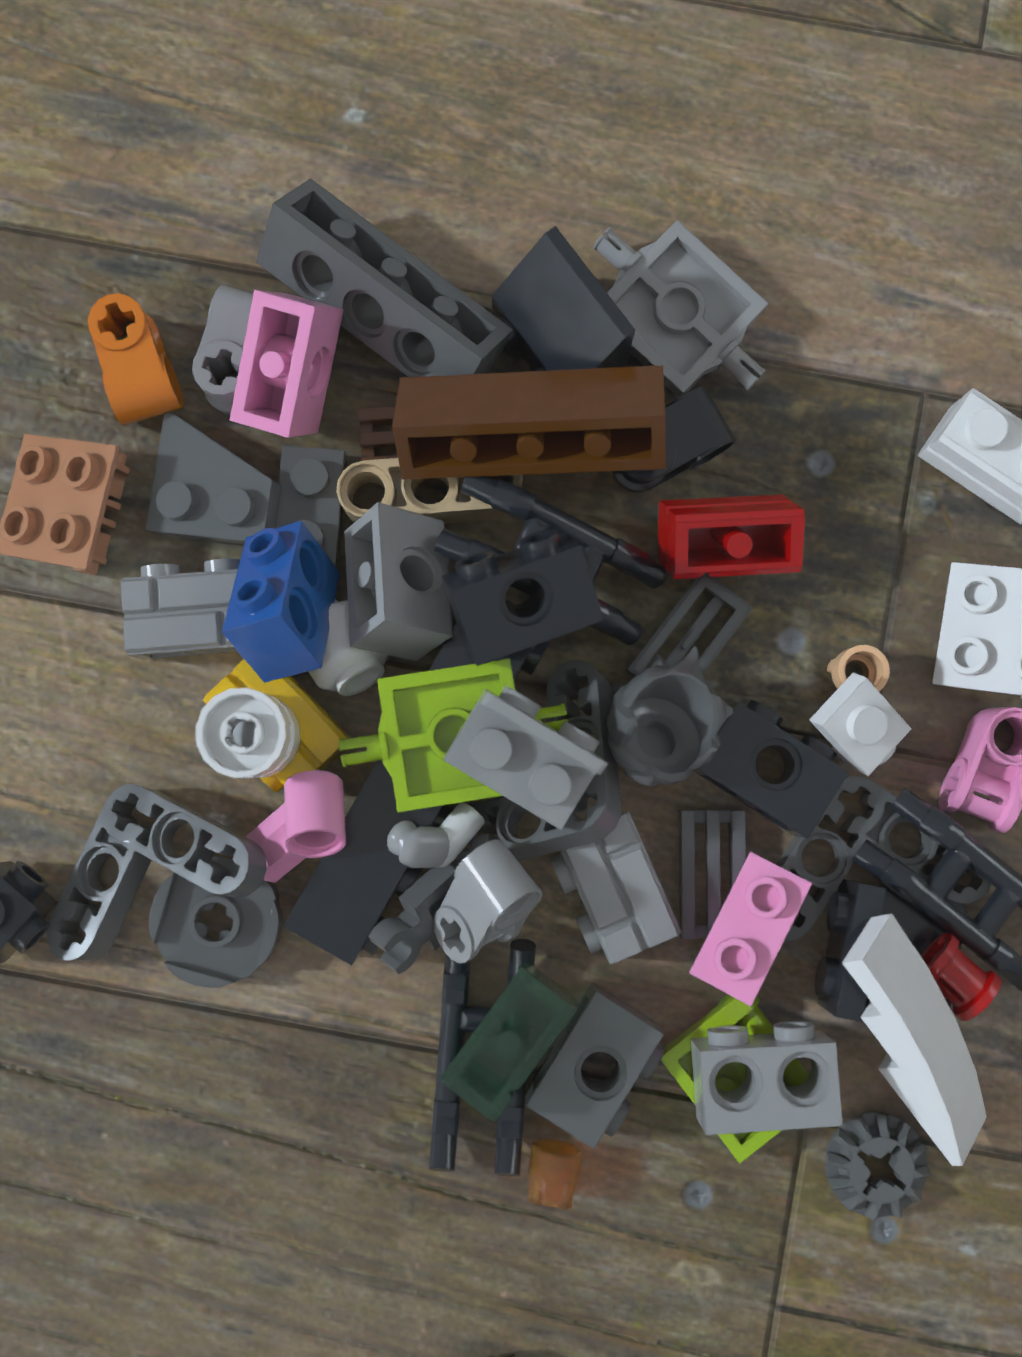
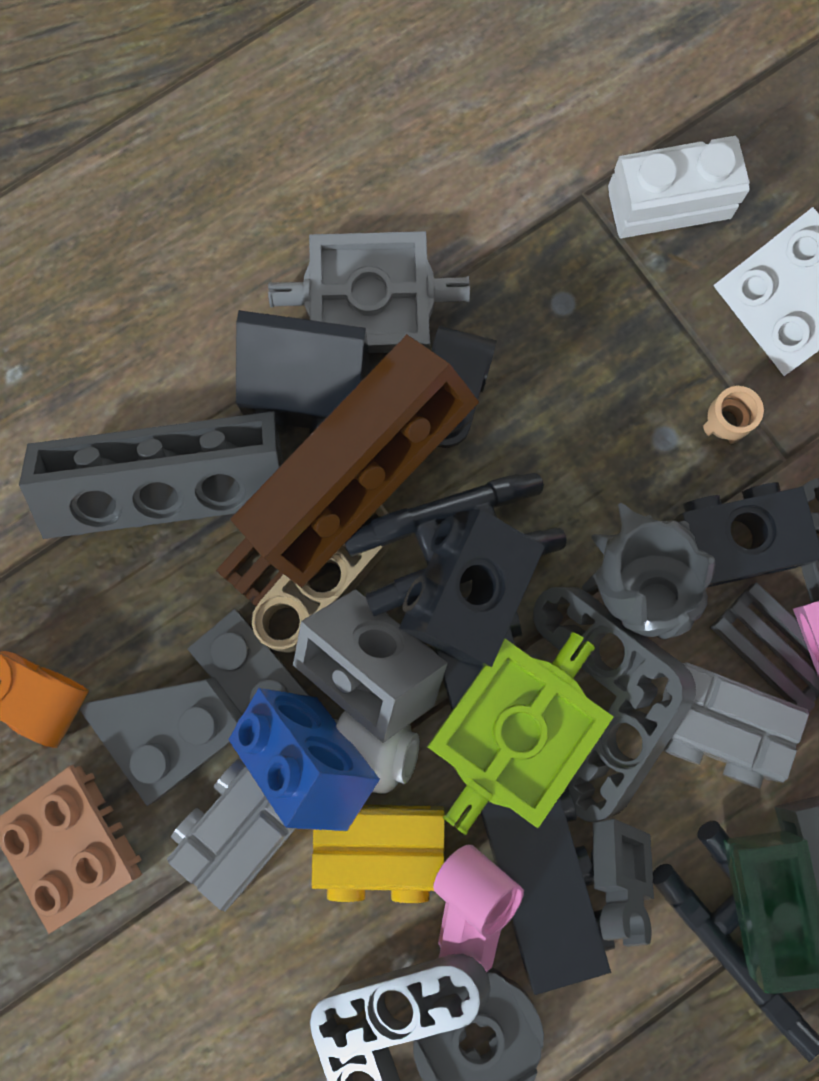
camera: 40 degrees left, 5 degrees down
(222, 346) = (81, 603): light grey piece -> none
(247, 734) = (376, 884): white wheel -> none
(285, 364) = (136, 589): bright pink brick -> none
(435, 845) = (584, 823): light grey arm -> none
(484, 902) = (659, 827): light grey piece -> none
(525, 757) = (588, 698): light grey bracket -> none
(721, 596) = (574, 501): dark grey tile -> none
(730, 536) = (560, 407): red brick -> none
(860, 725) = (776, 447): white bracket -> none

